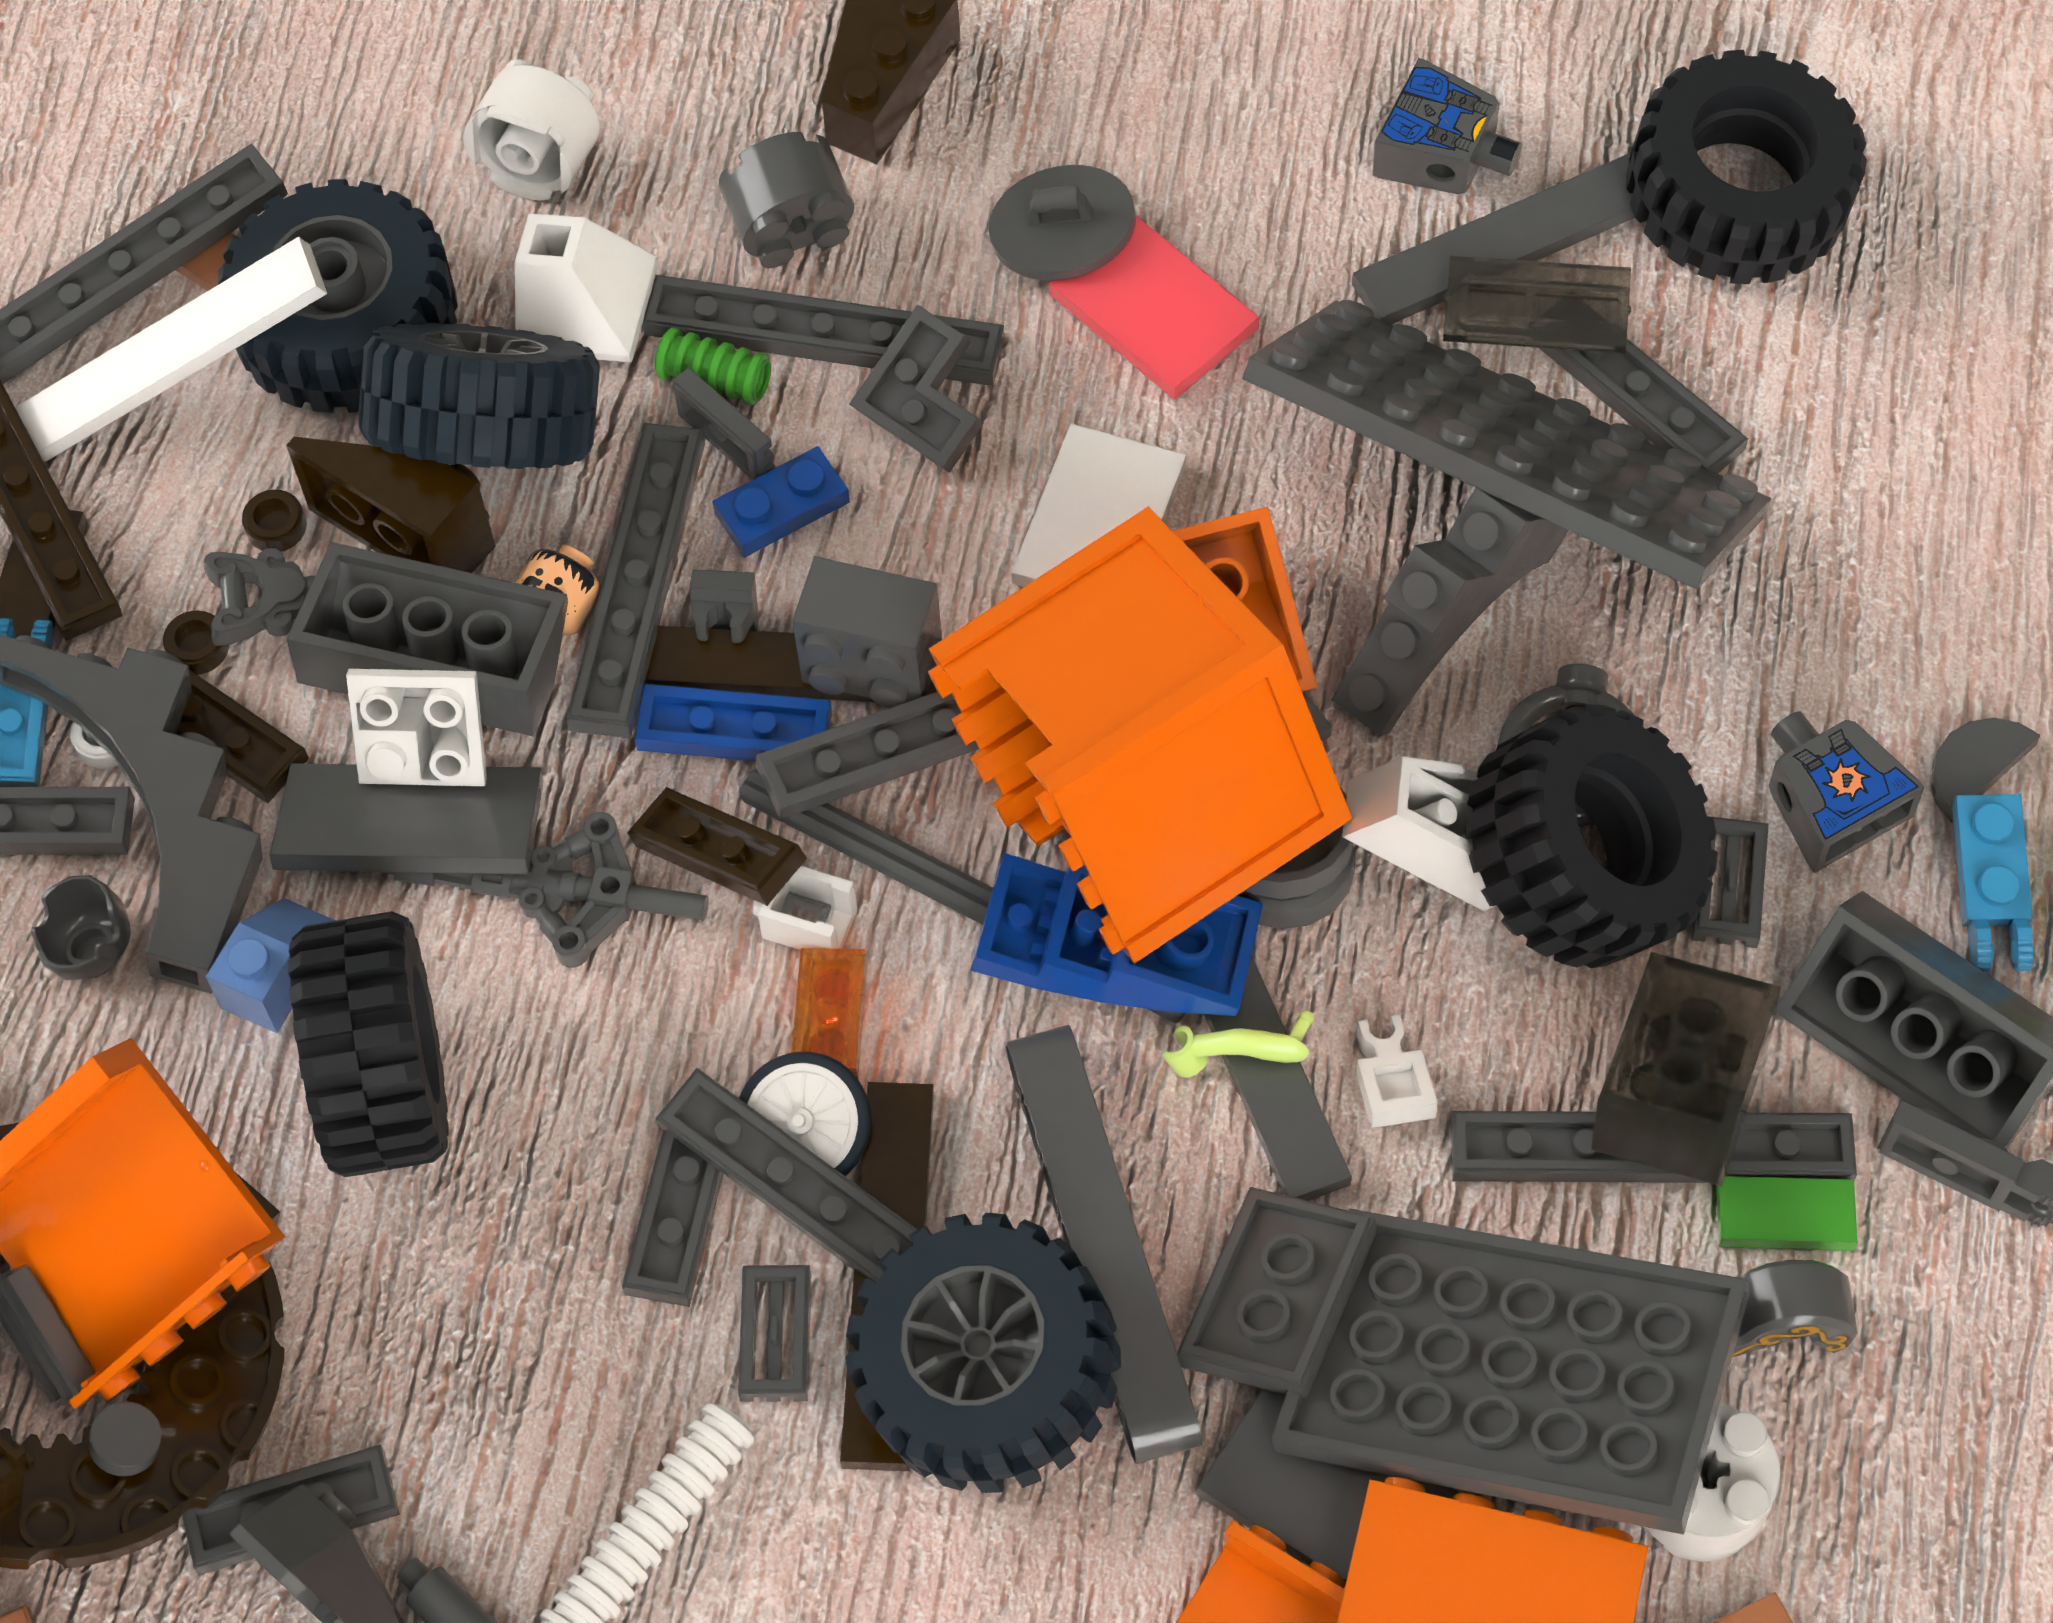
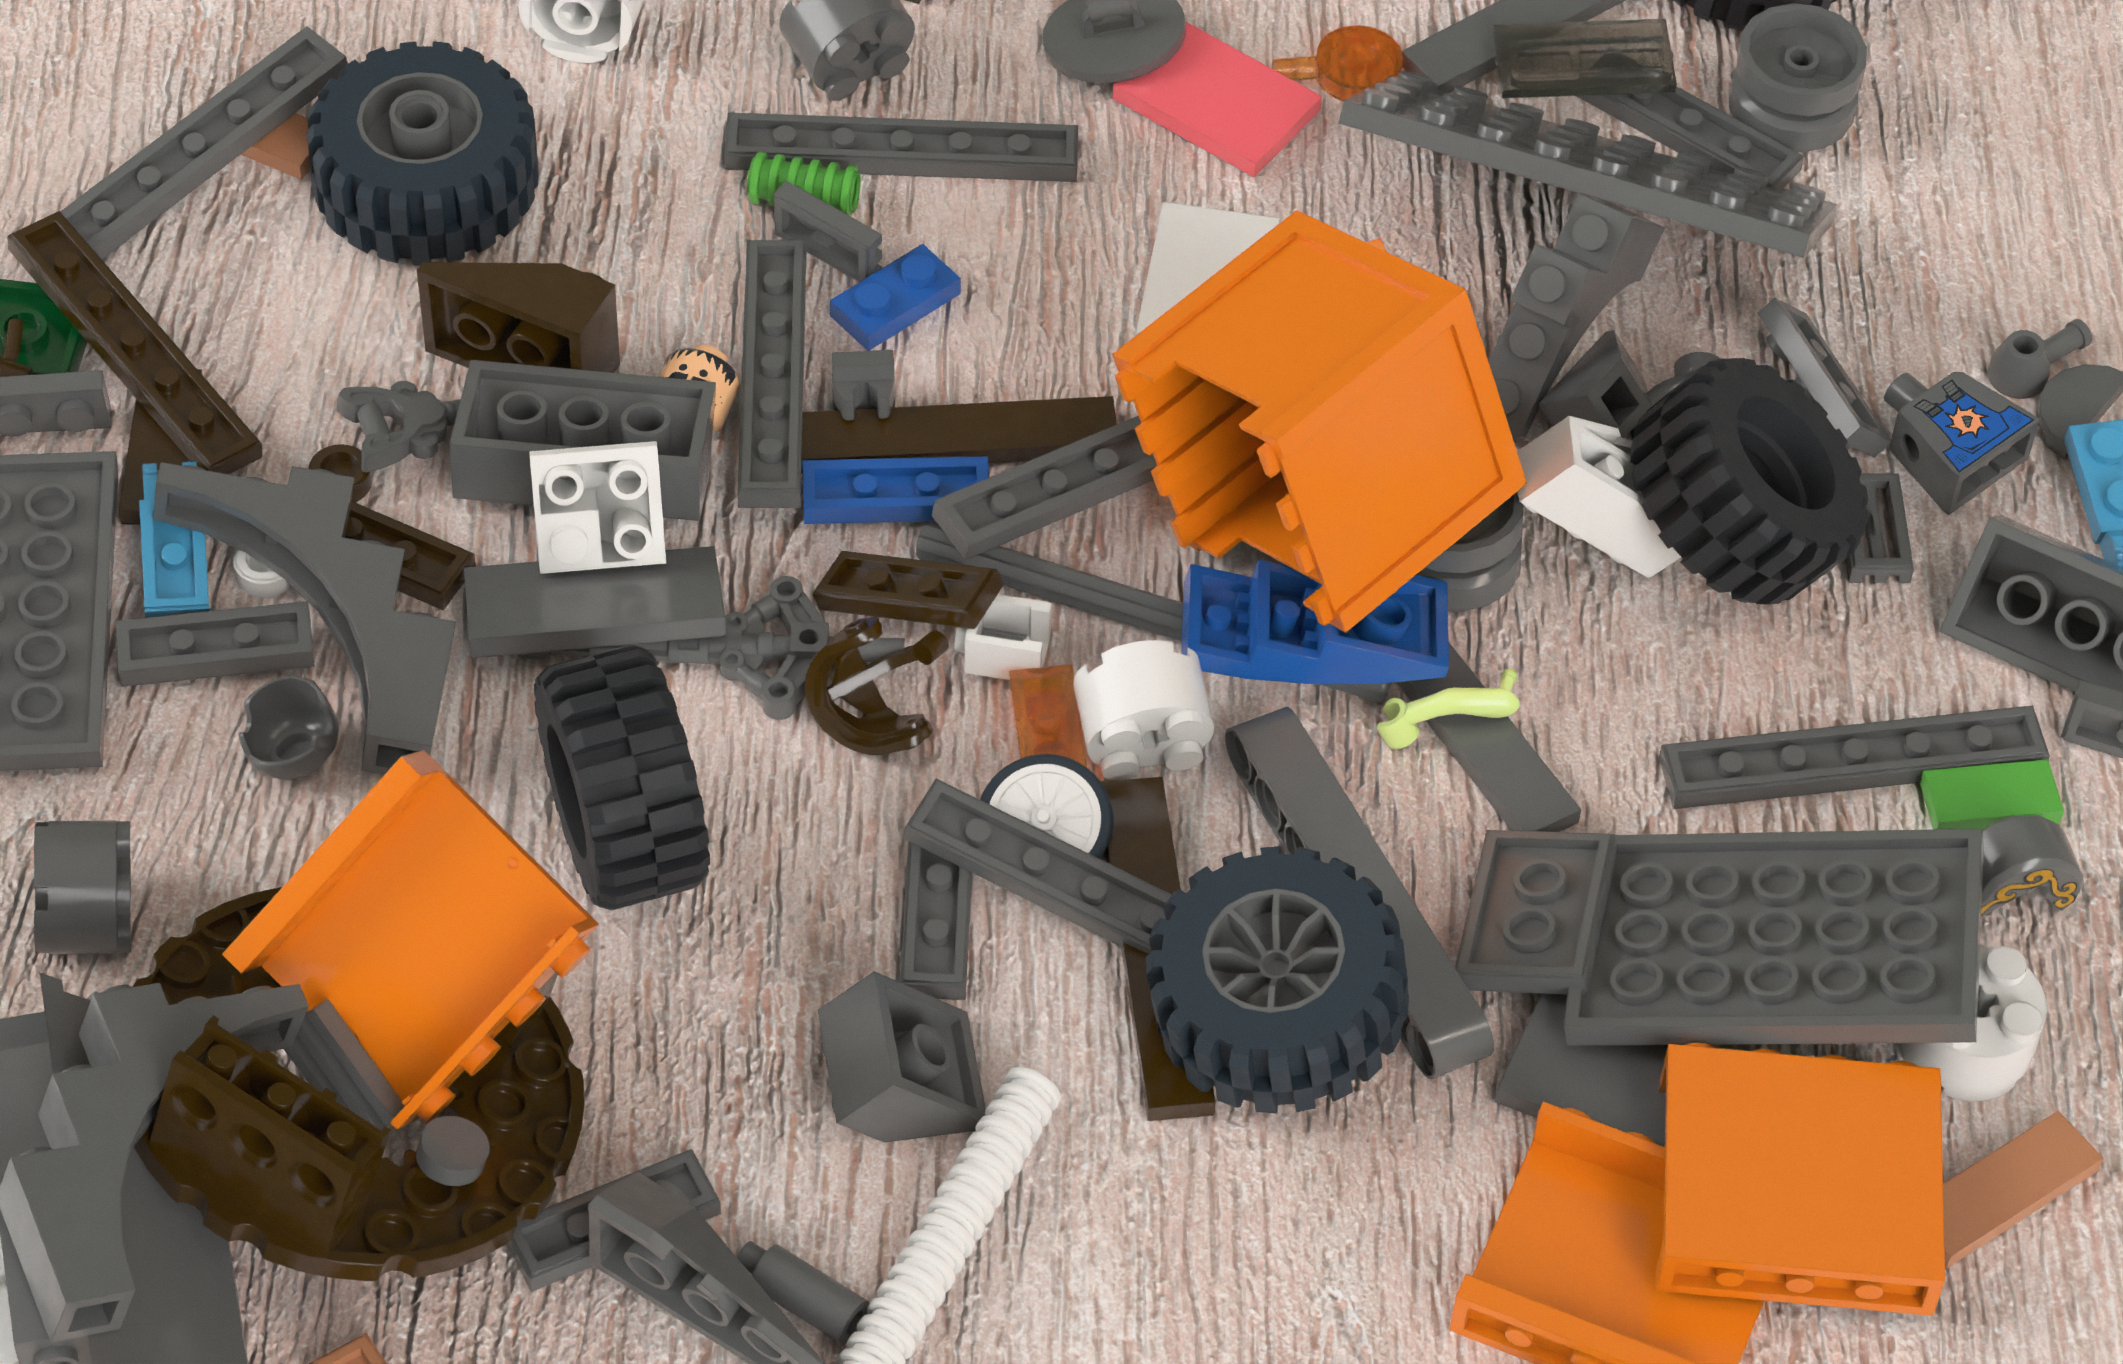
camera: 15 degrees left, 10 degrees down
(173, 348) = (276, 204): white tile -> none
(252, 967) = (485, 742): medium blue slope -> none
(274, 520) = (393, 359): dark brown tile -> none
(478, 395) = (596, 211): black wheel -> none
(582, 284) = (660, 127): white slope -> none
(603, 1379) = (900, 1062): none -> dark grey slope
(668, 992) = (880, 728): none -> dark brown helmet
(774, 1386) = (1064, 1053): dark grey tile -> none
(866, 632) = (1019, 382): dark grey brick -> none
(905, 395) = (999, 187): dark grey plate -> none
(922, 1014) = (1144, 709): none -> white brick
(1296, 278) = (1347, 61): none -> clear orange piece
(1391, 1081) = (1598, 725): white plate -> none
(1471, 701) = (1601, 388): none -> dark grey slope
(1685, 1068) = (1878, 673): clear smoke brick -> none
(1711, 704) = (1822, 376): none -> dark grey plate
(1757, 349) = (1798, 75): none -> dark grey wheel
(1933, 723) = (2024, 359): none -> dark grey bar

